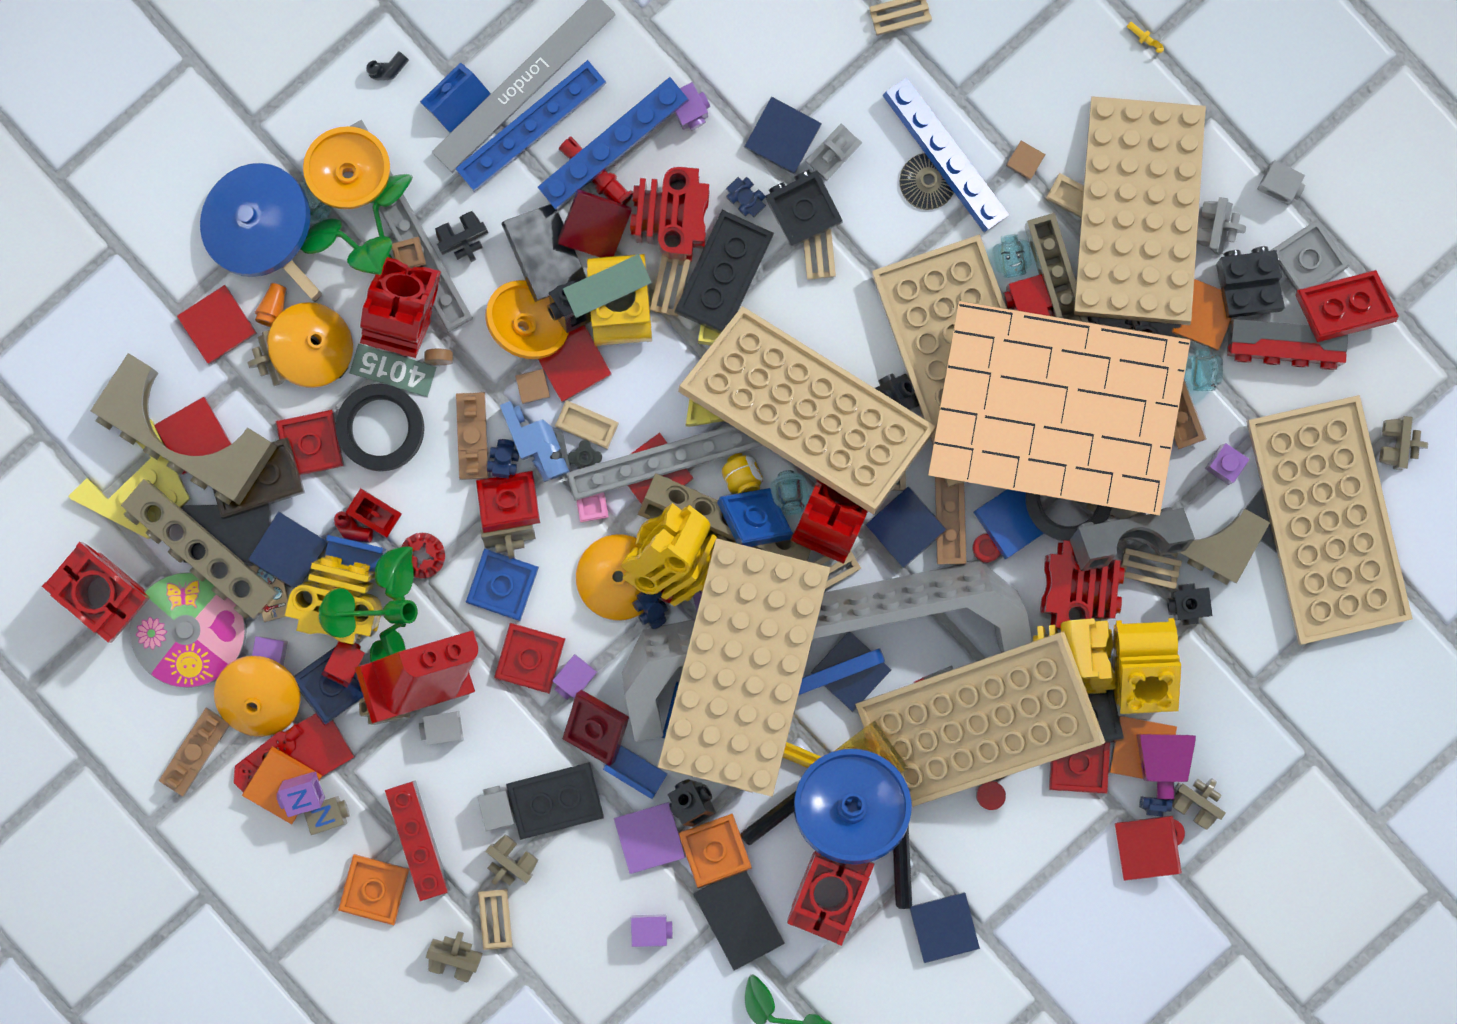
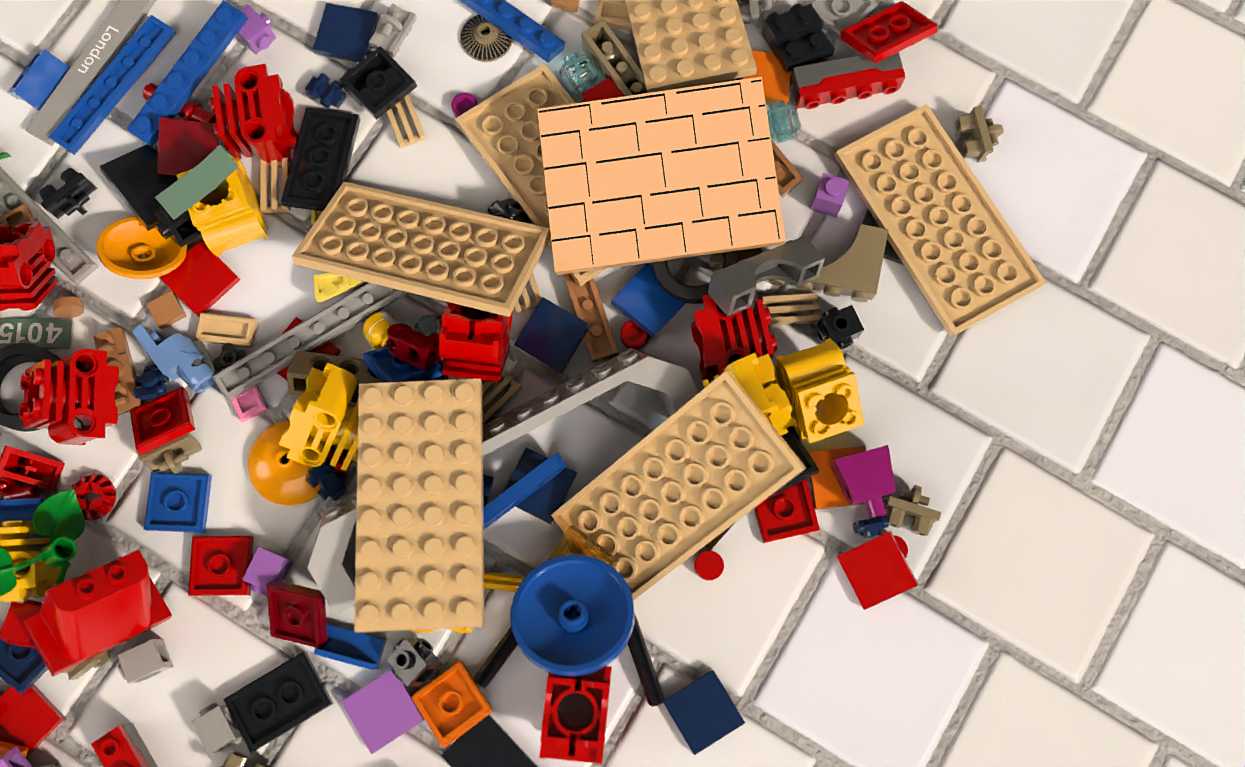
camera: 15 degrees left, 10 degrees down
(434, 460) = (71, 397): none -> red piece
(770, 505) = (413, 346): none -> dark red leg
(884, 254) = (463, 103): none -> magenta tile

